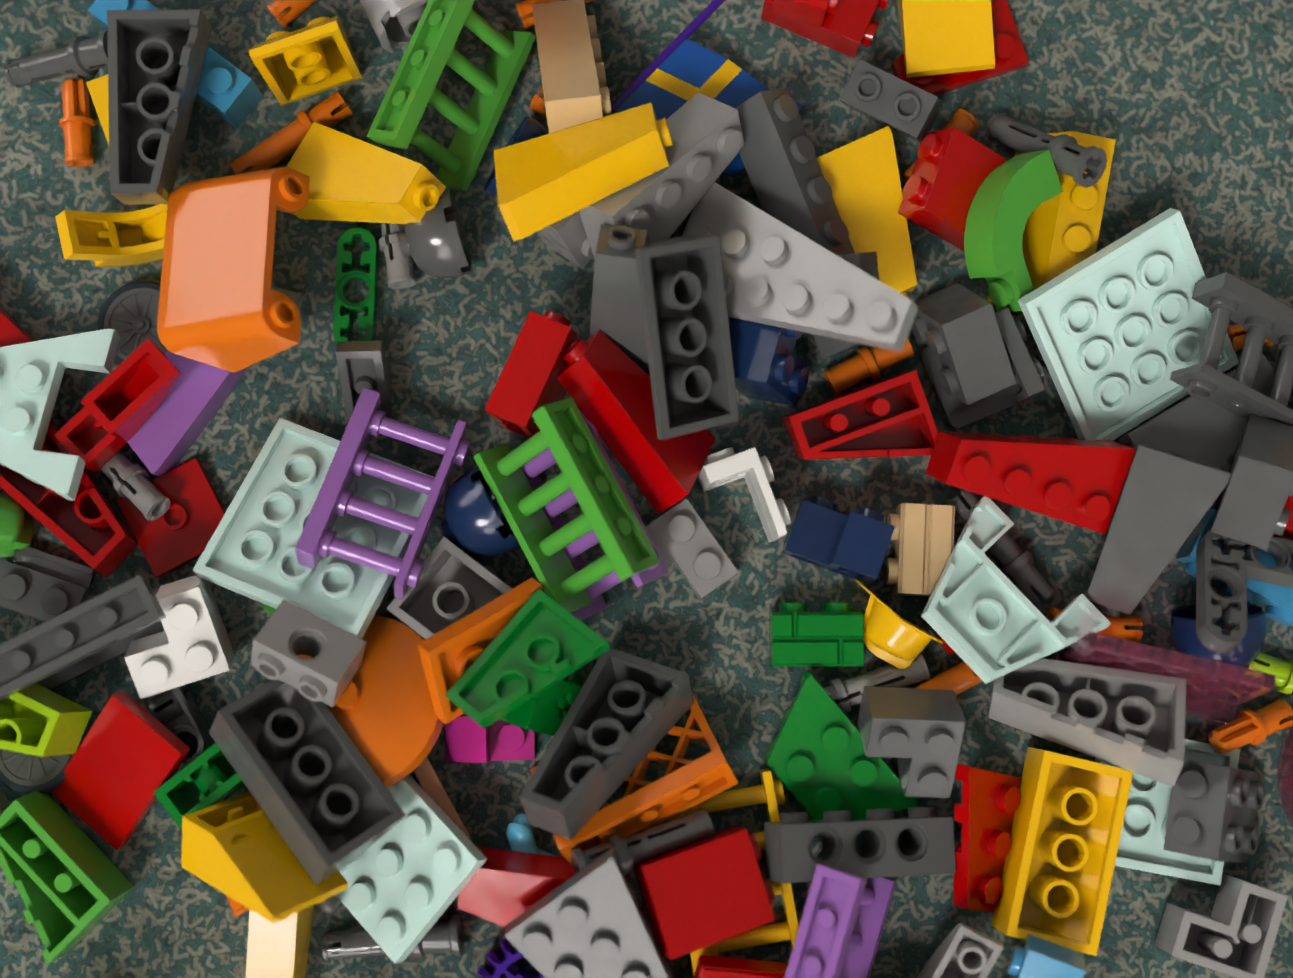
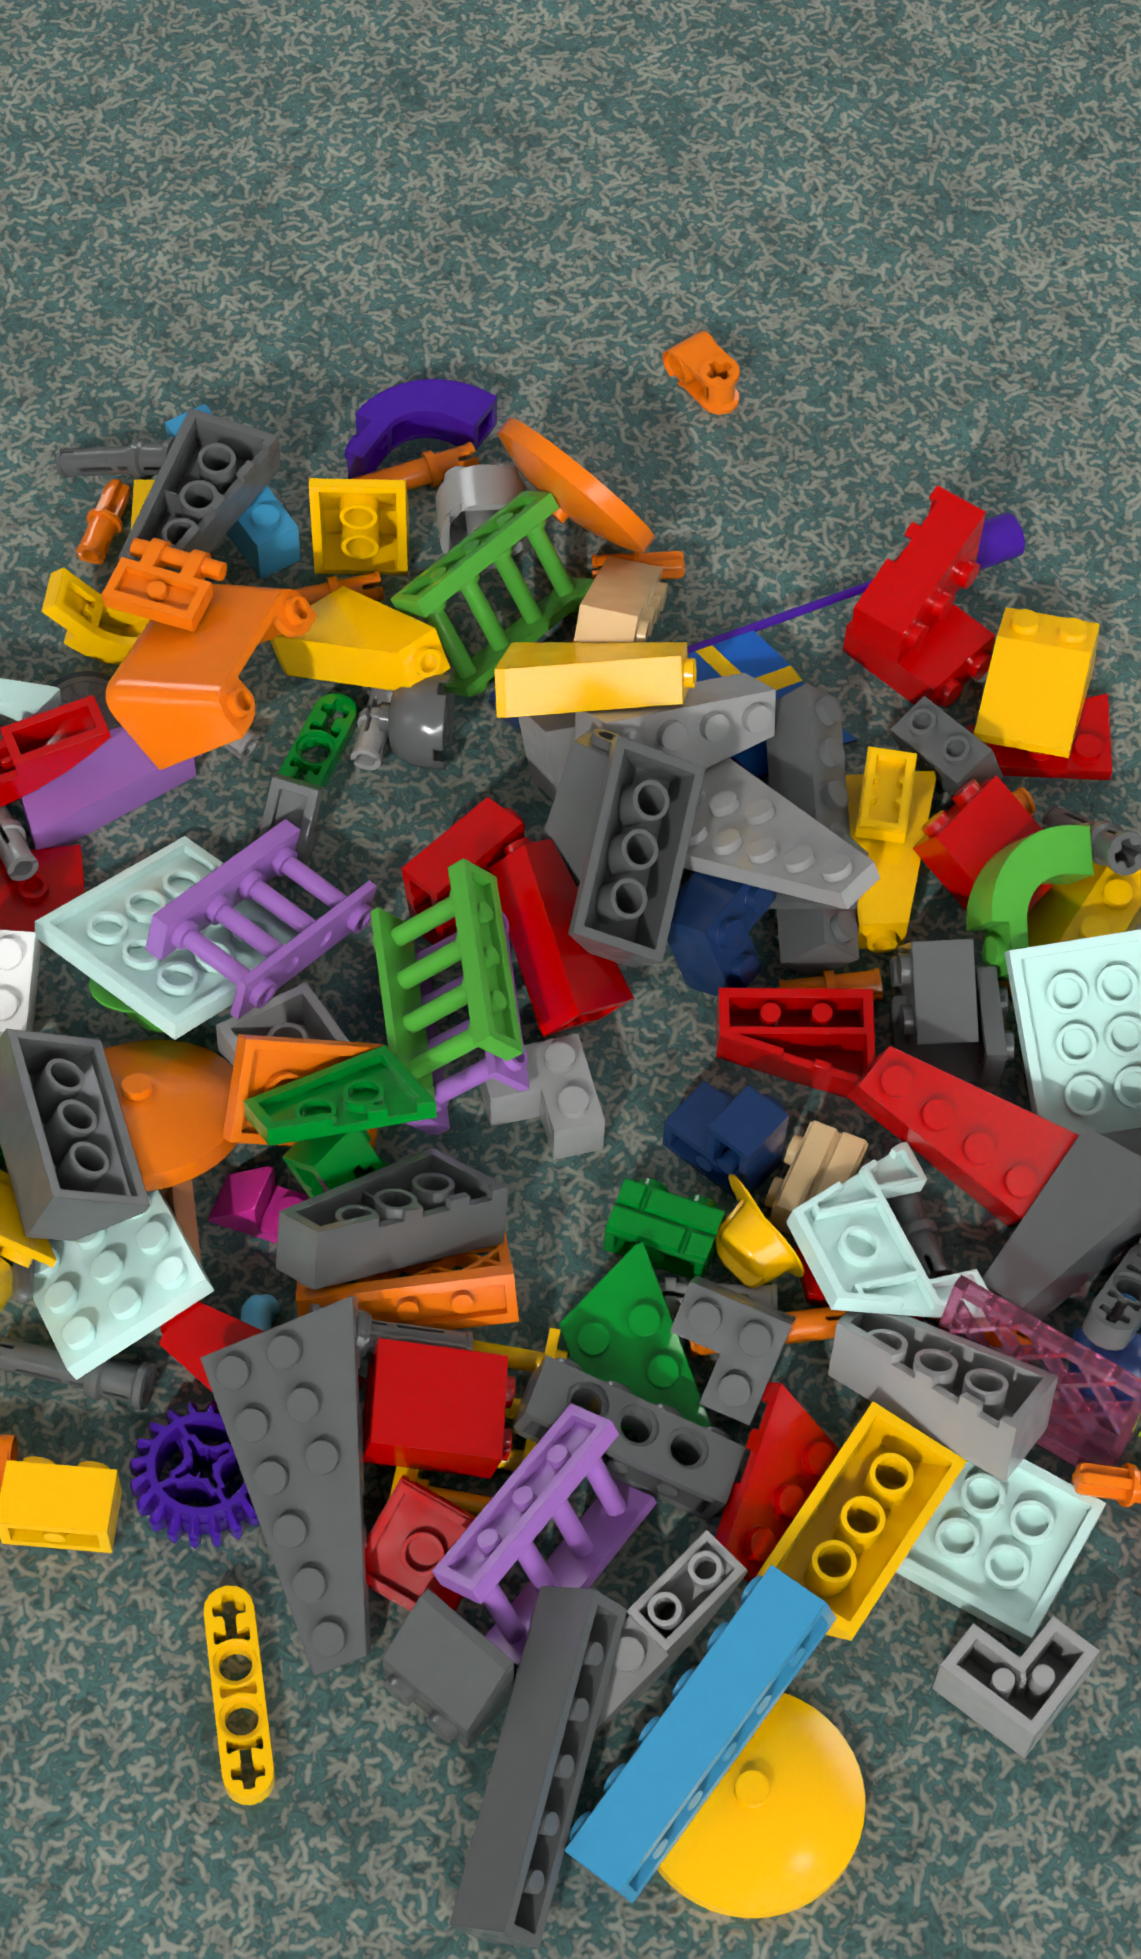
camera: 20 degrees right, 25 degrees down
(163, 223) = (162, 594): none -> orange plate
(297, 632) = (119, 1023): light grey brick -> none
(475, 517) = (350, 983): dark blue cylinder -> none
(727, 467) = (643, 1028): white bracket -> none
(860, 171) = (886, 795): none -> yellow plate
(1214, 812) = (1056, 1548): dark grey bracket -> none

